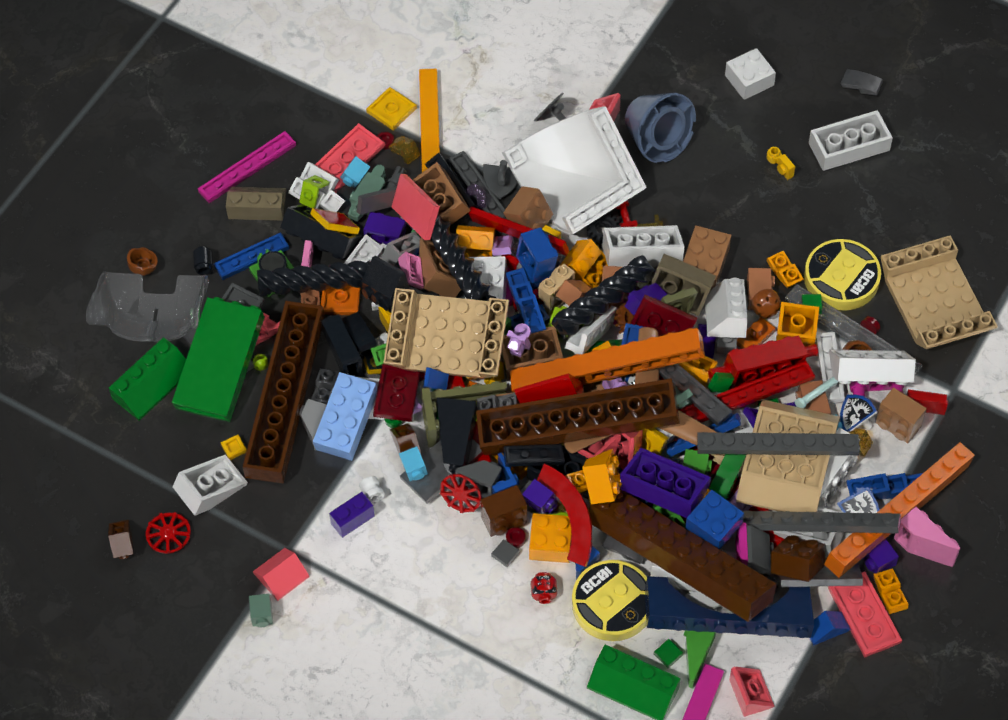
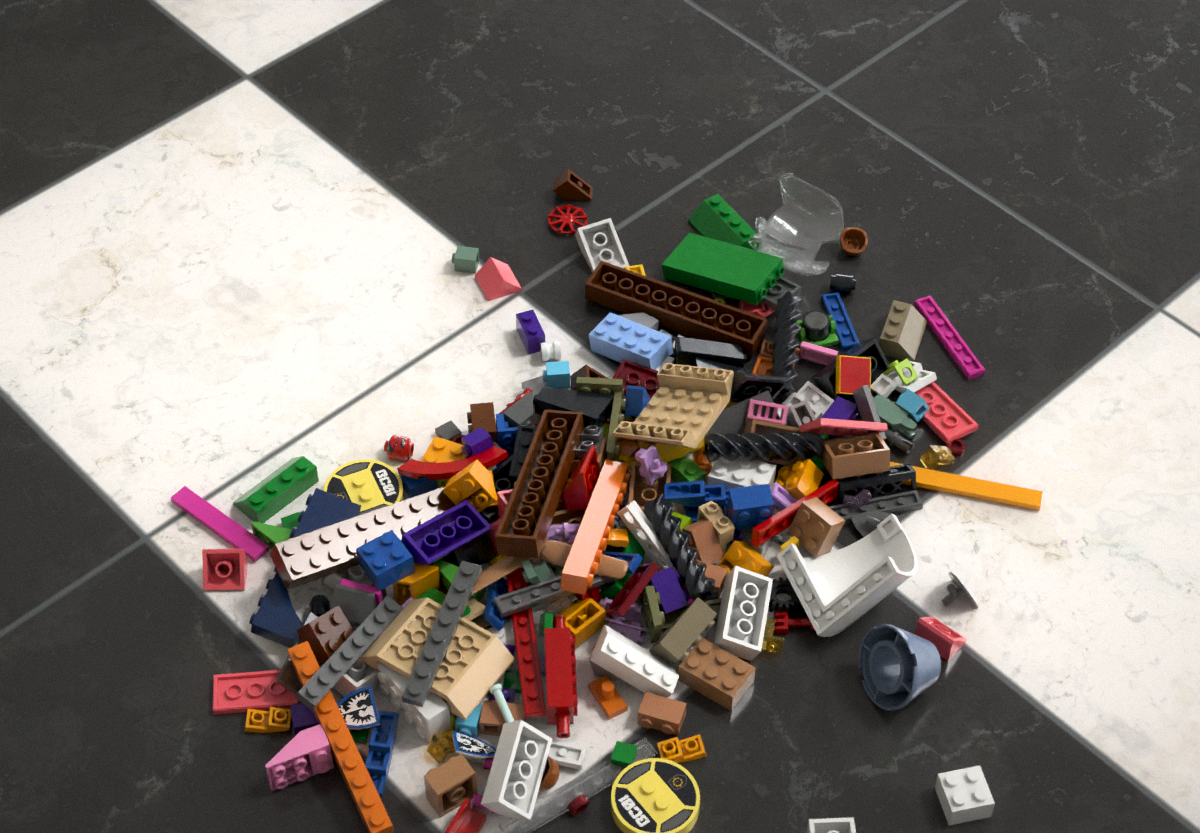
camera: 105 degrees right, 10 degrees down
(391, 108) = (996, 460): yellow tile -> none
(768, 307) = (634, 707): dark orange helmet -> none
(785, 166) = (822, 790): yellow plate -> none
(798, 320) = (599, 728): light orange brick -> none
(828, 625) = (257, 654): blue slope -> none

